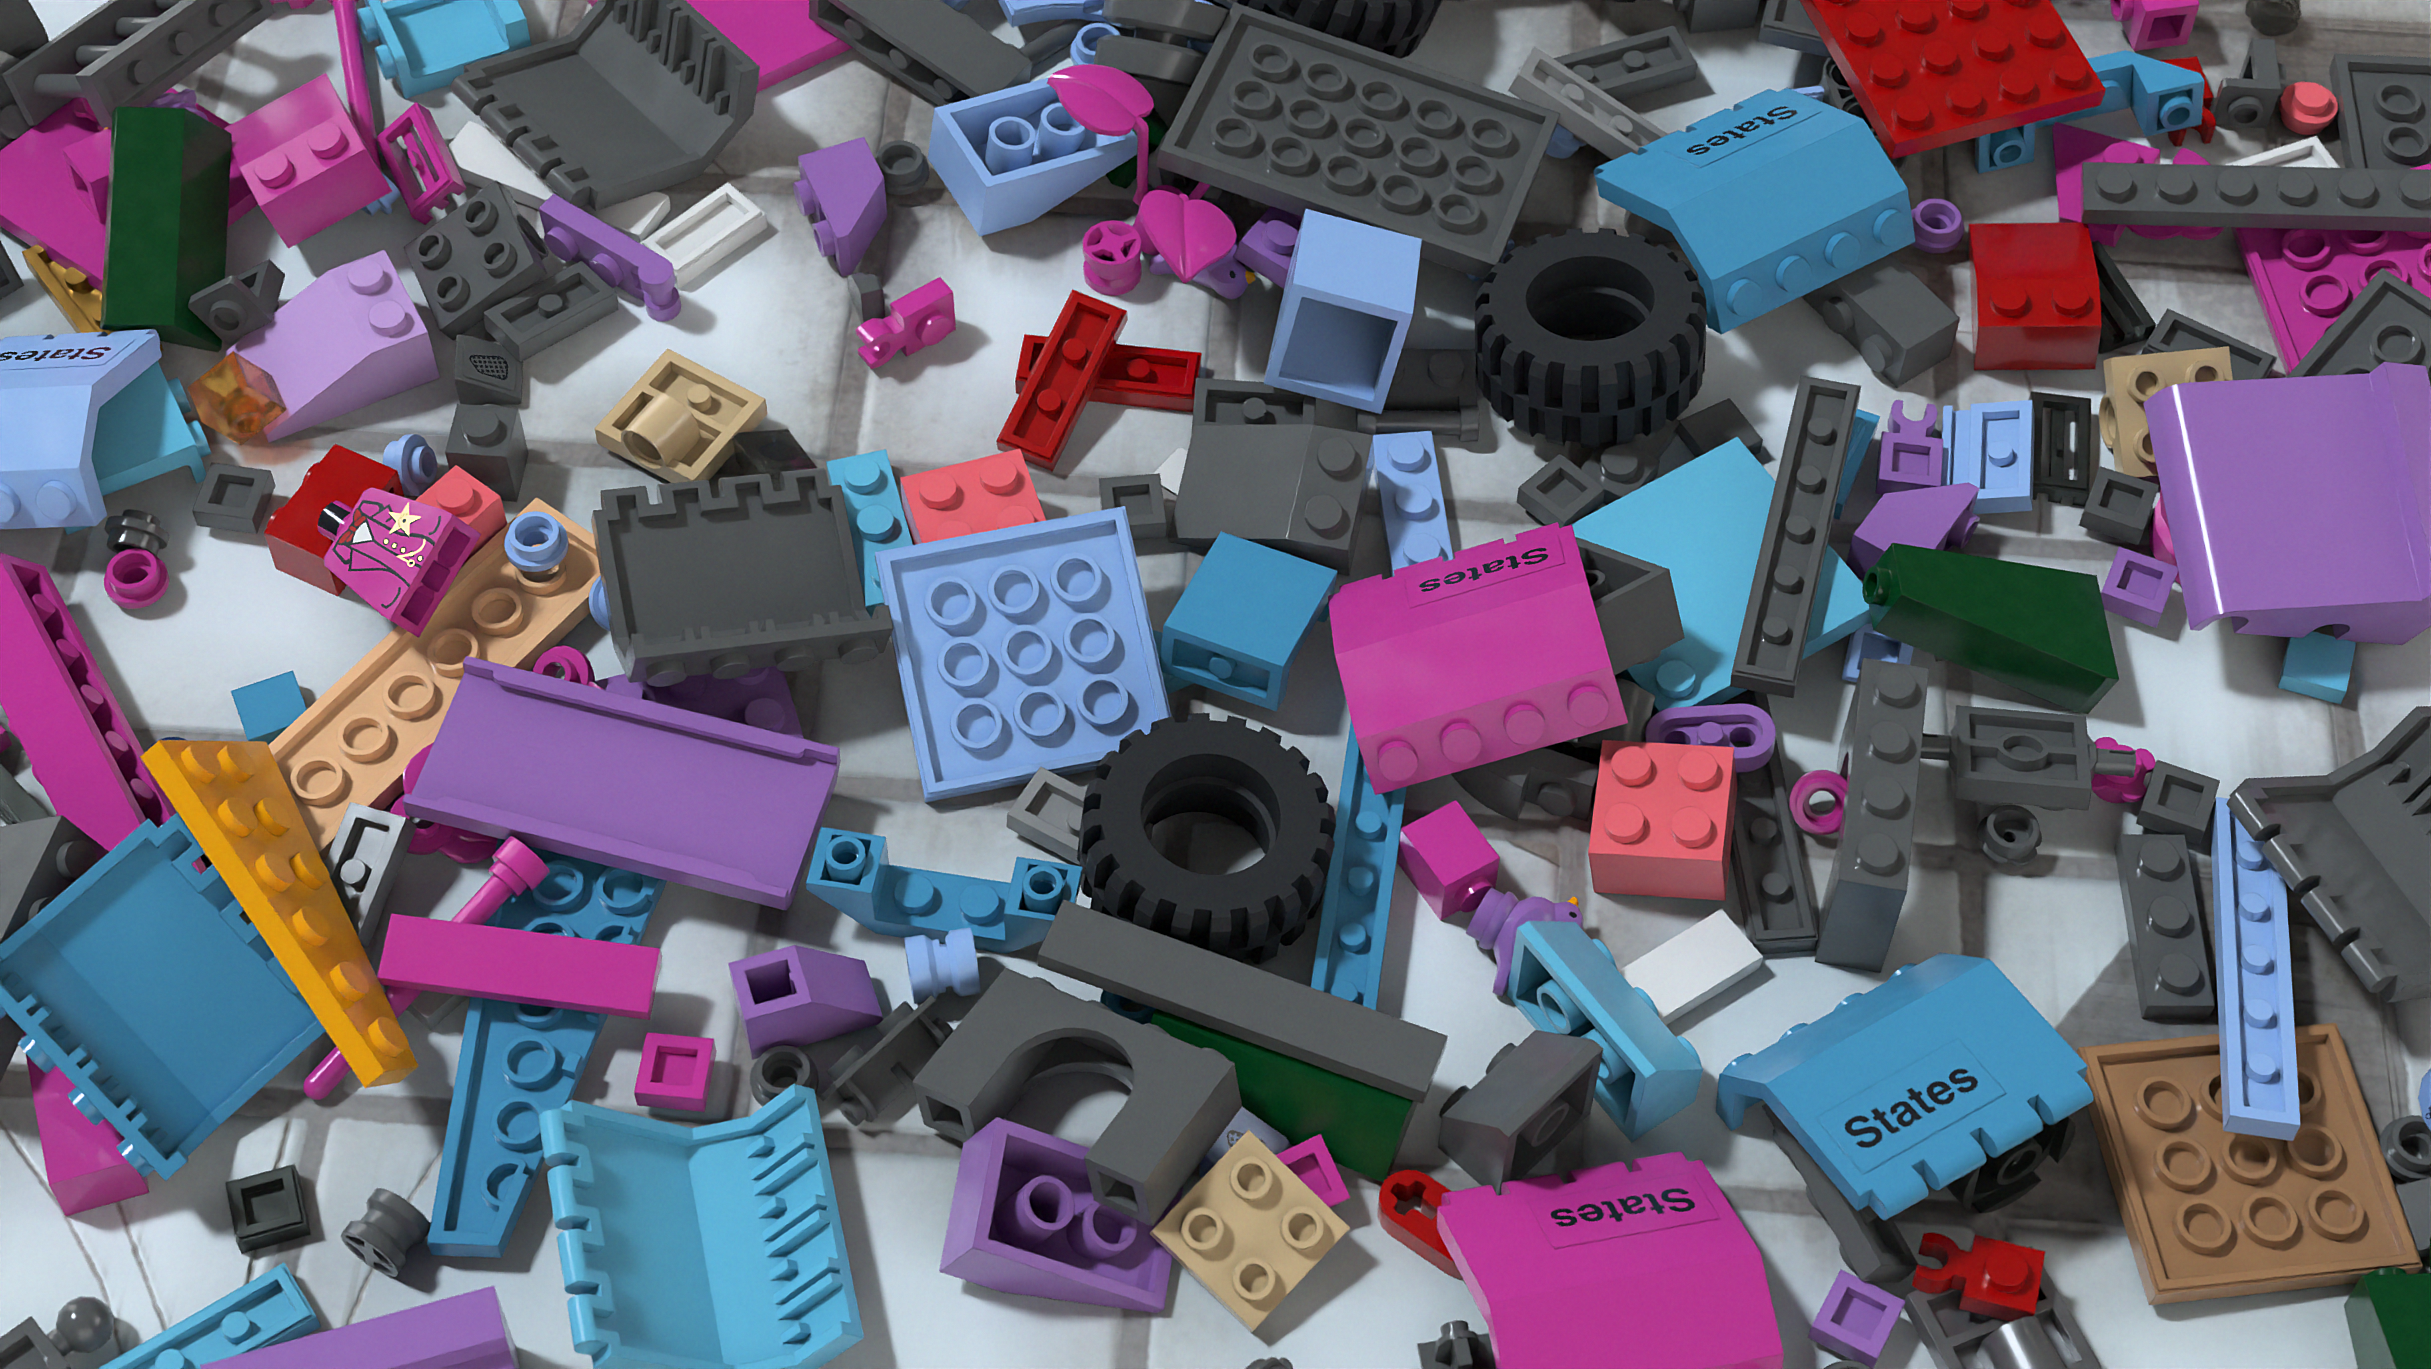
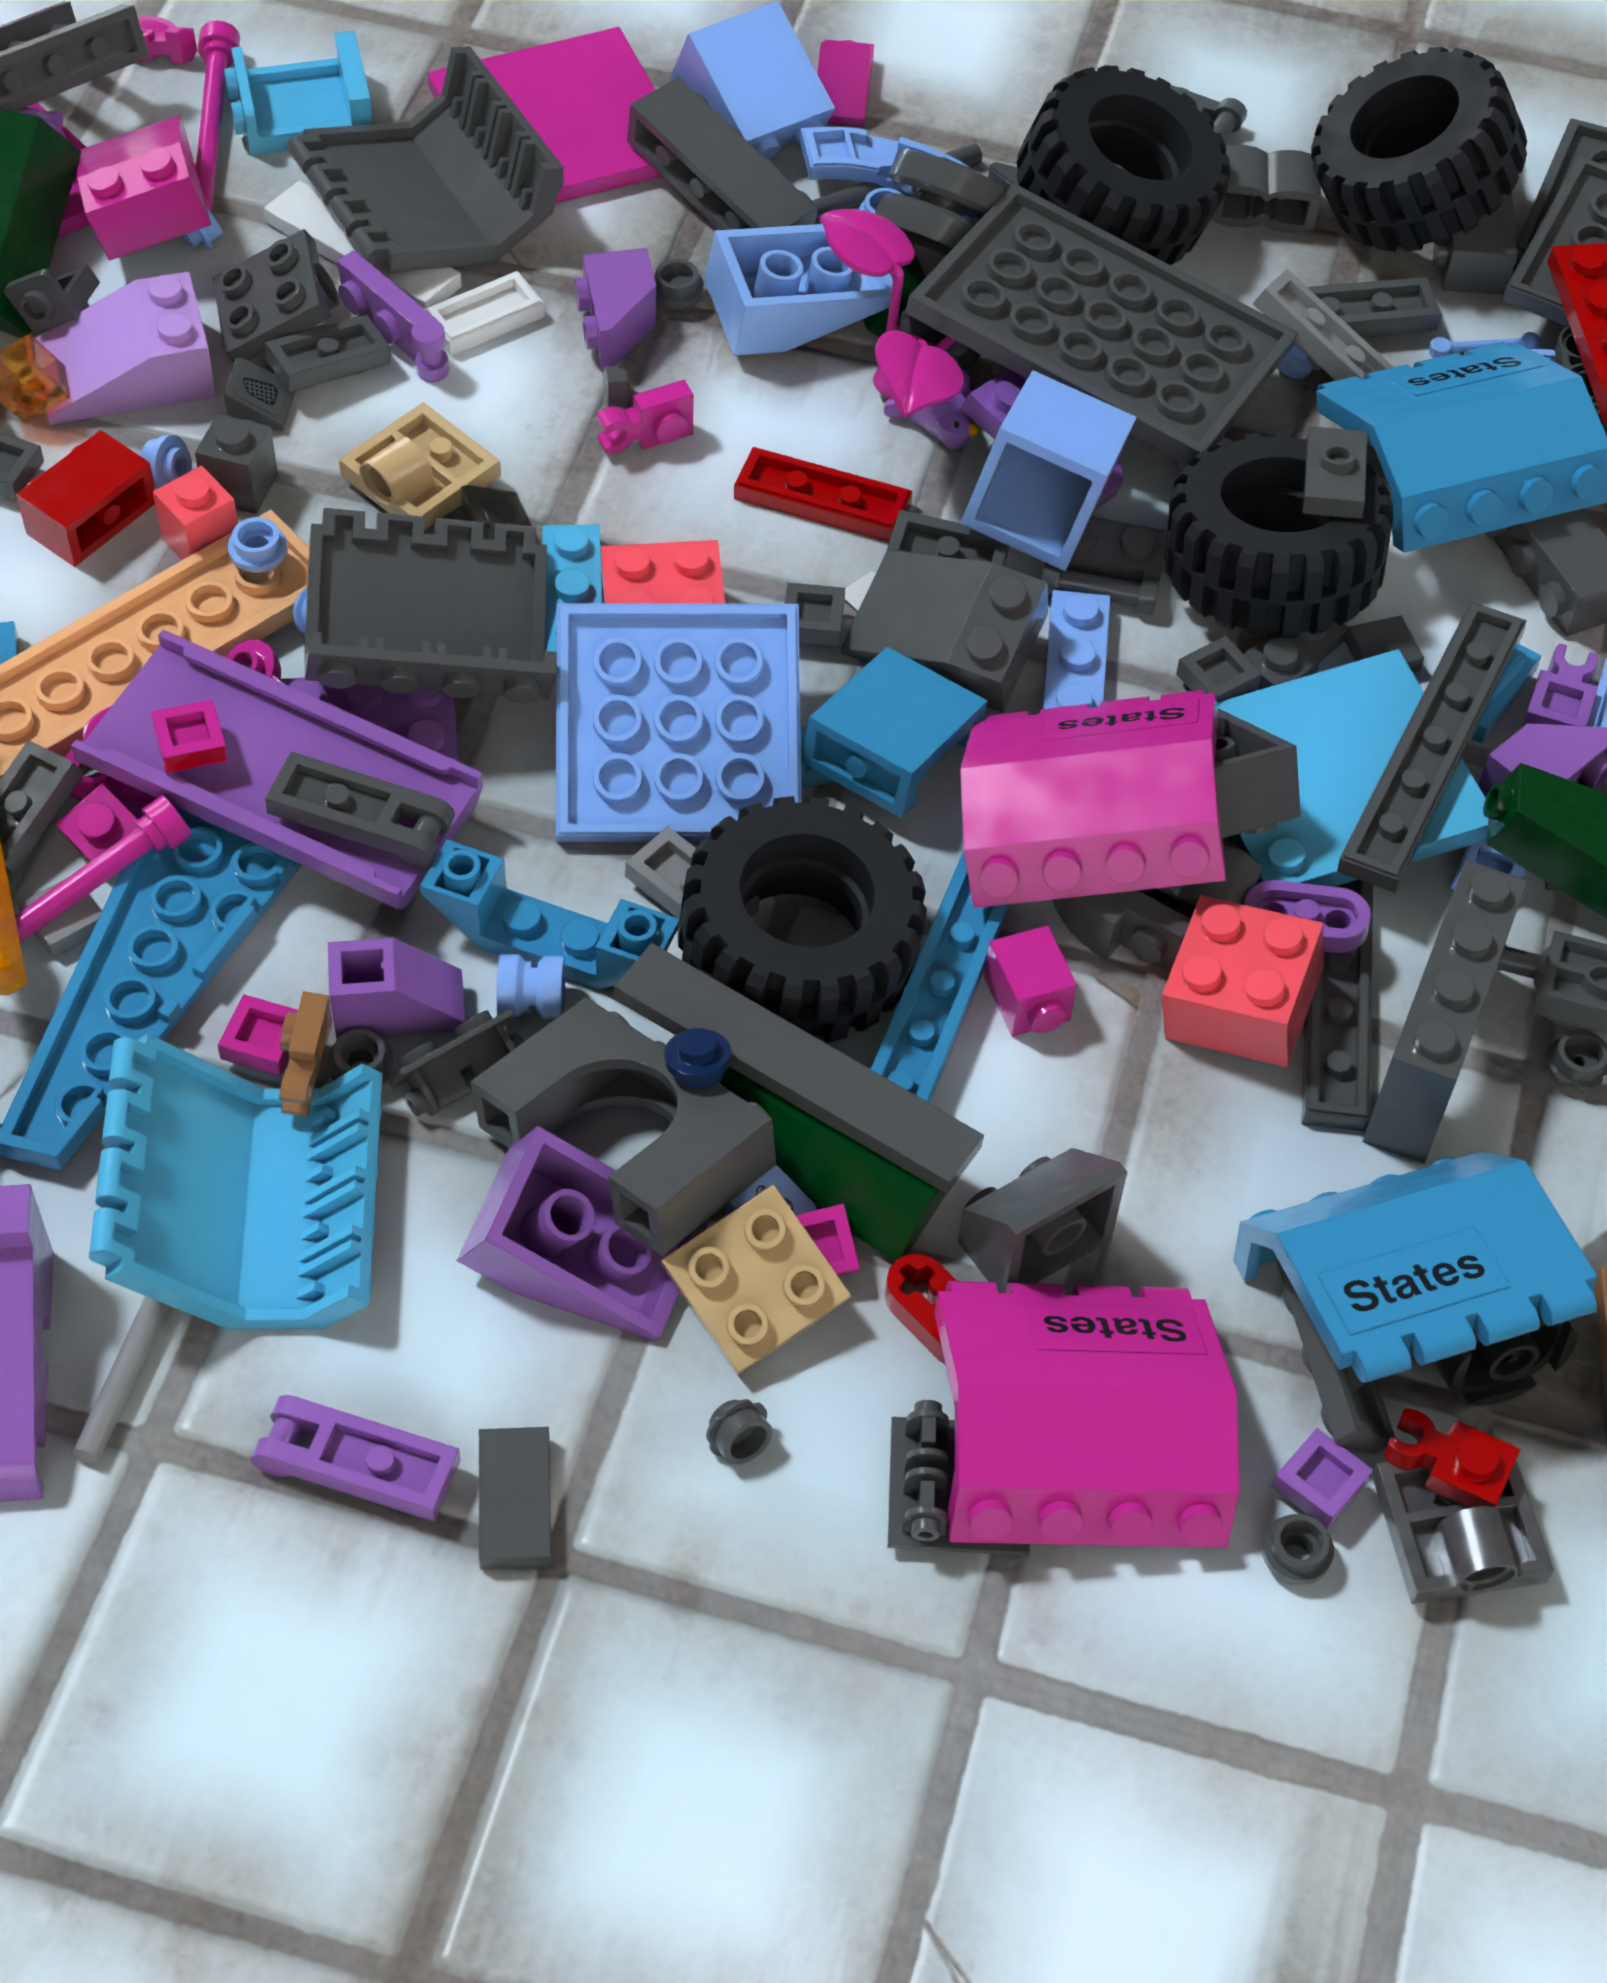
camera: 10 degrees right, 0 degrees up
(396, 553) = (126, 531): dark pink torso -> none
(437, 188) = (253, 201): dark pink tile -> none
(444, 878) = (97, 823): none -> dark pink plate
(520, 966) = (141, 912): dark pink tile -> none
(525, 768) = (189, 736): none -> dark pink plate
(723, 812) = (359, 808): none -> dark grey plate
(726, 1069) = (305, 1039): none -> medium nougat plate
(1062, 379) = (777, 490): red tile -> none
(1115, 243) = (850, 393): dark pink wheel -> none
(1142, 1013) = (697, 1058): none -> dark blue plate
(1497, 924) = (1084, 1057): medium lavender animal -> none
(1573, 989) = (1122, 1116): medium azure slope -> none
(1639, 266) = (1335, 472): none -> dark grey plate
(1694, 966) = (1237, 1125): white tile -> none
(1703, 97) = (1442, 346): none -> light blue hinge
(1805, 815) = (1381, 990): dark pink plate -> none

